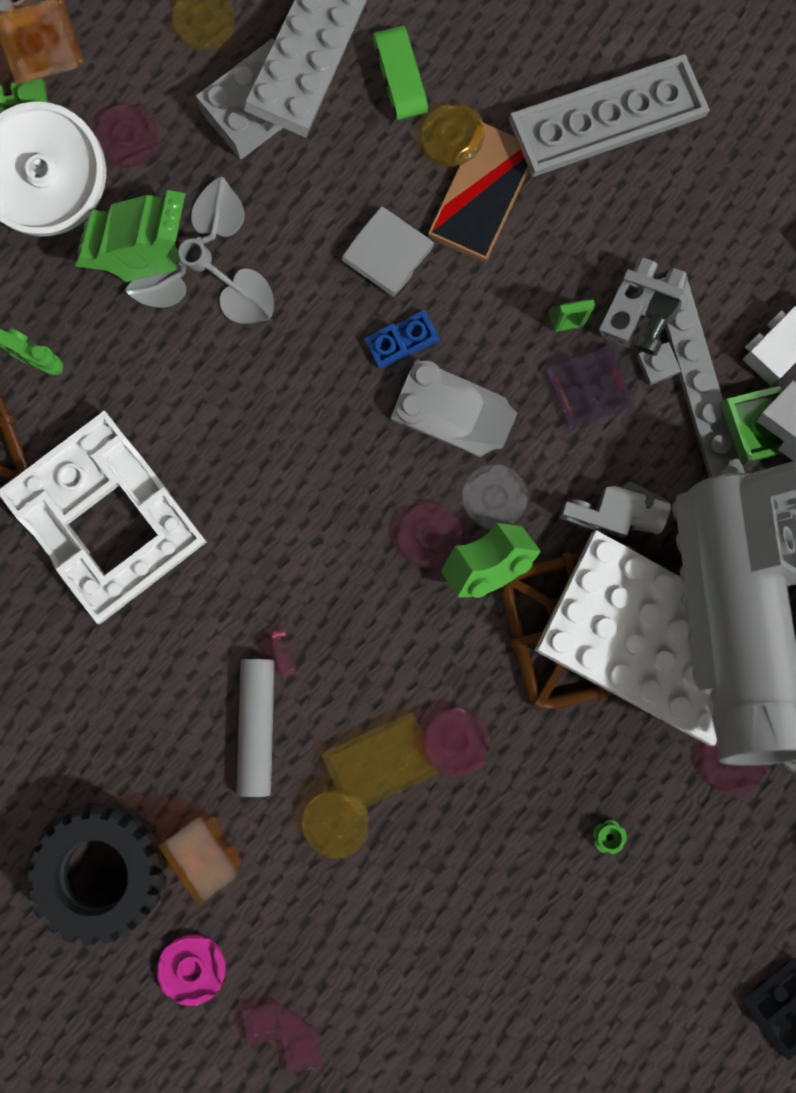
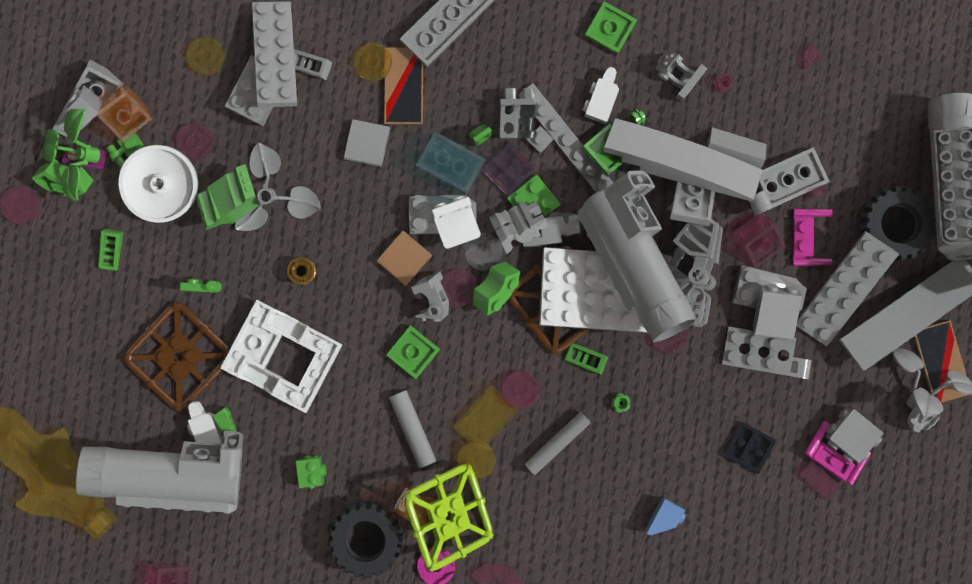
camera: 25 degrees left, 5 degrees up
(61, 722) = (310, 471): none -> bright green head
(192, 385) = (295, 264): none -> pearl gold wheel
(232, 883) = (437, 514): none -> lime plate
(282, 652) = (408, 383): clear pink tile -> none
(312, 604) = (413, 352): none -> bright green plate
(365, 451) = (404, 258): none -> medium nougat slope
(373, 108) = (325, 67): none -> light grey slope
(389, 534) = (434, 291): none -> light grey tile
(401, 71) = (328, 39): bright green beam -> none
(402, 339) = (396, 188): blue slope -> none
(473, 427) = (455, 222): none -> white bracket
(478, 857) = (557, 443): none -> light grey brick
(505, 335) = (451, 163): none -> clear light blue brick
(573, 474) = (518, 224): none -> light grey hips
(585, 757) = (601, 365): none -> bright green slope
(602, 1063) = (665, 517): none -> medium blue slope
(615, 439) = (537, 192): none -> bright green plate

